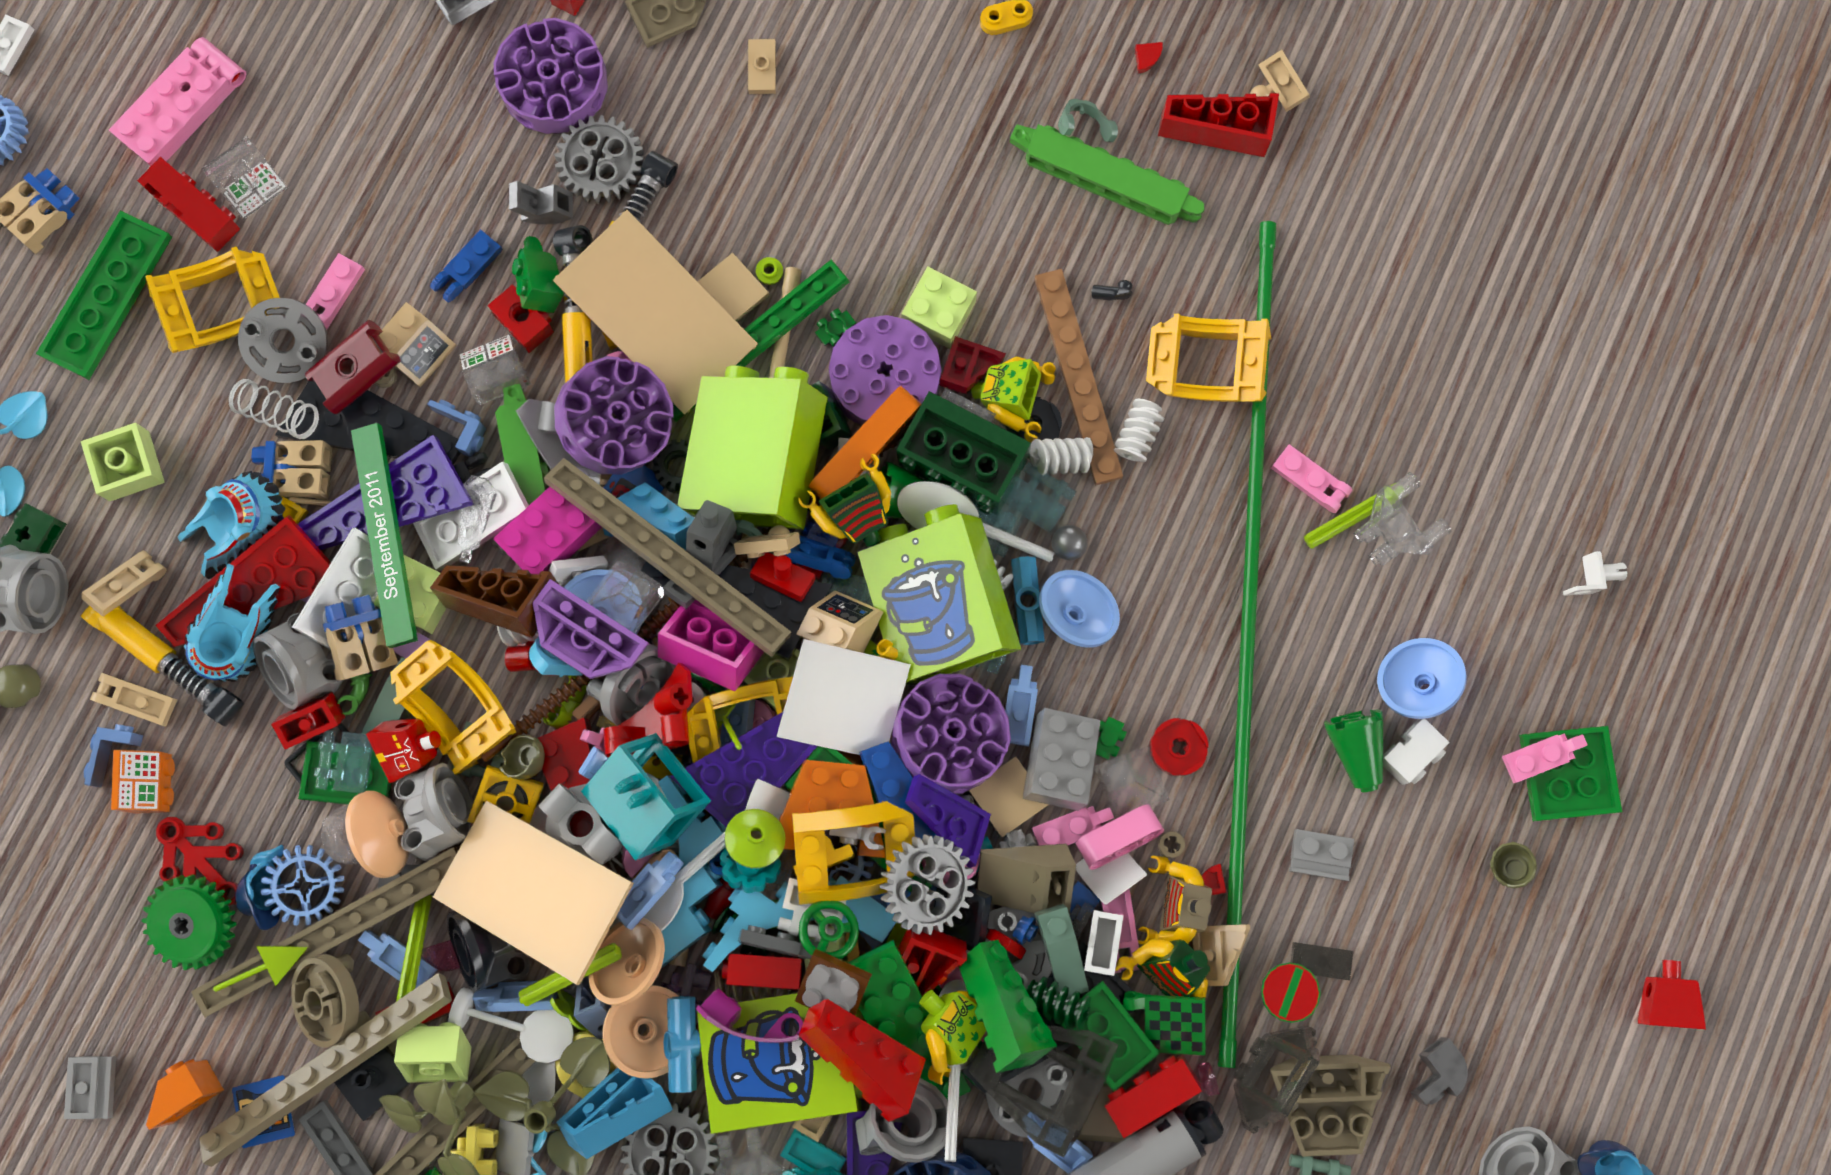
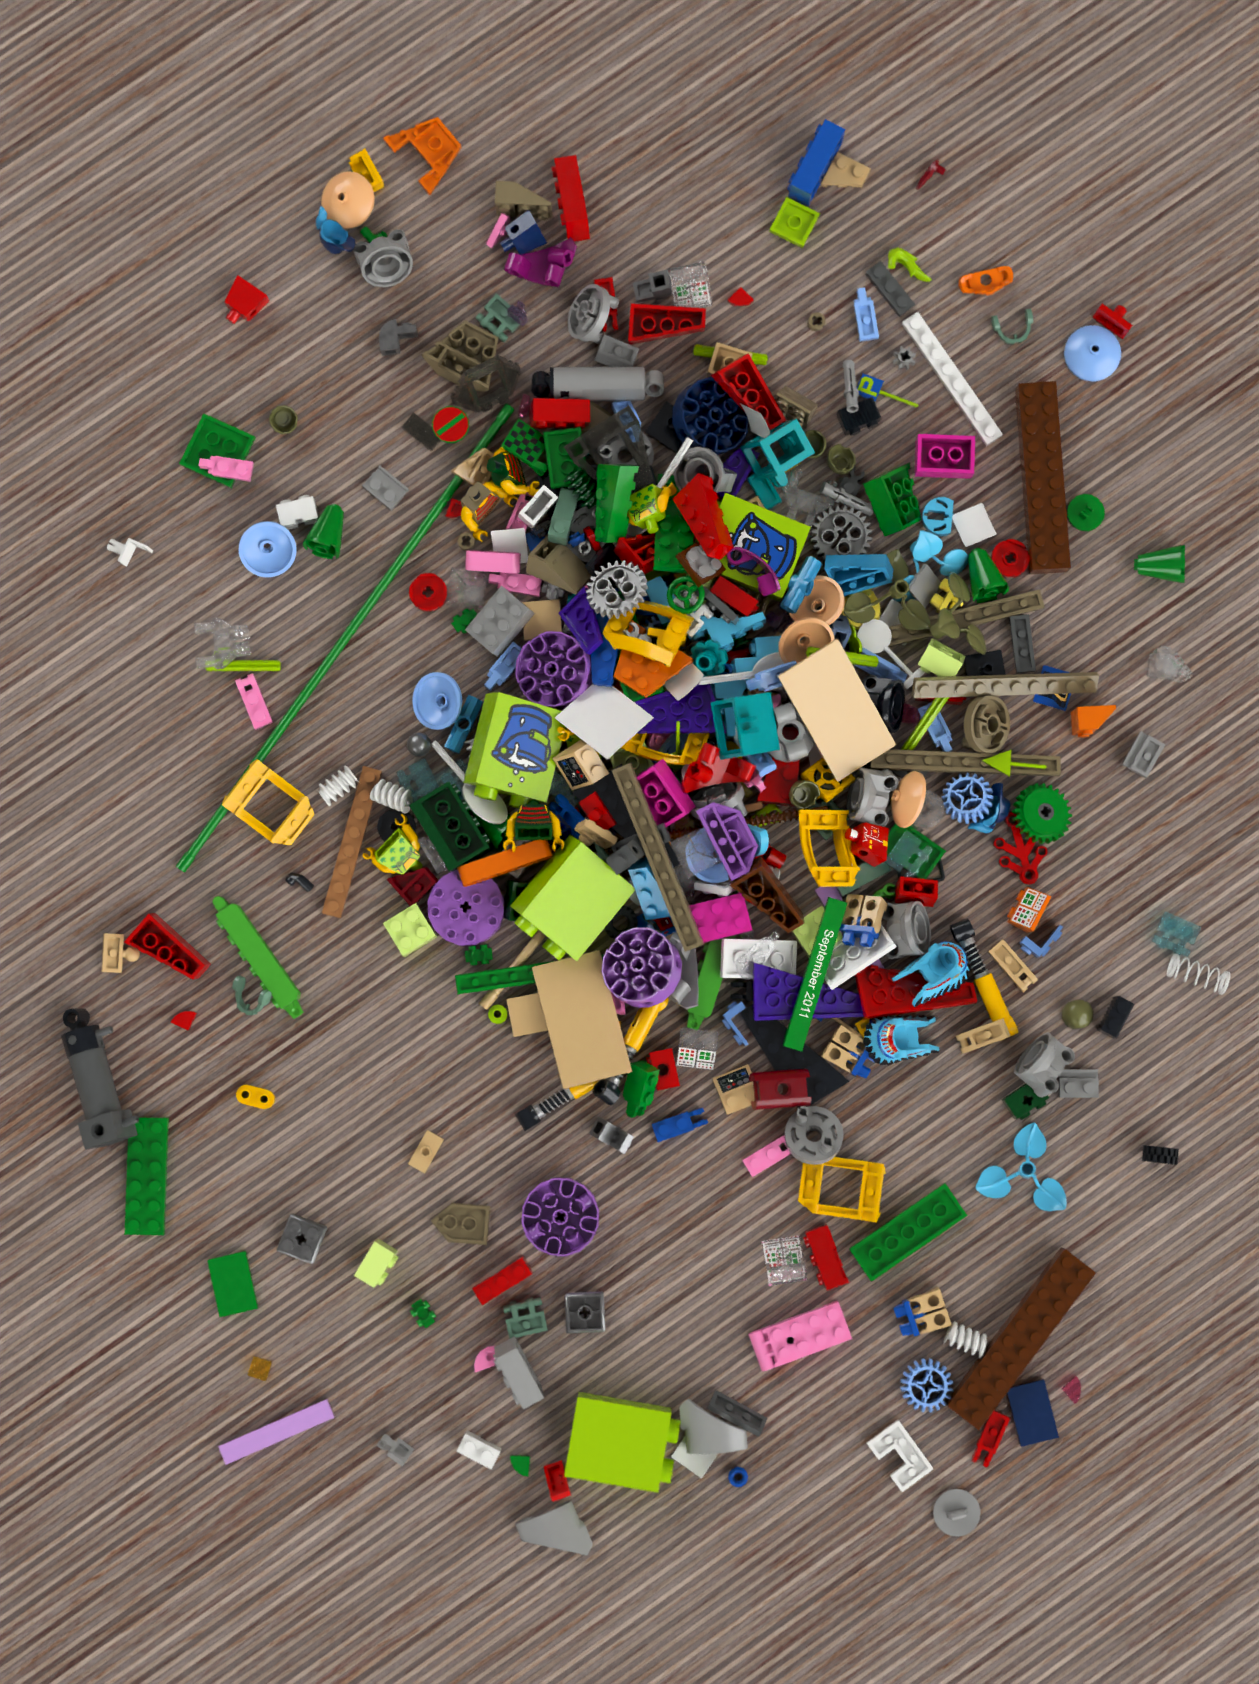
camera: 145 degrees left, 5 degrees up
(122, 462) = (947, 1113): yellowish green brick -> none
(292, 431) = (854, 1112): white piece -> none
(575, 153) = (572, 1159): light grey gear -> none
(751, 851) = (706, 670): lime dish -> none

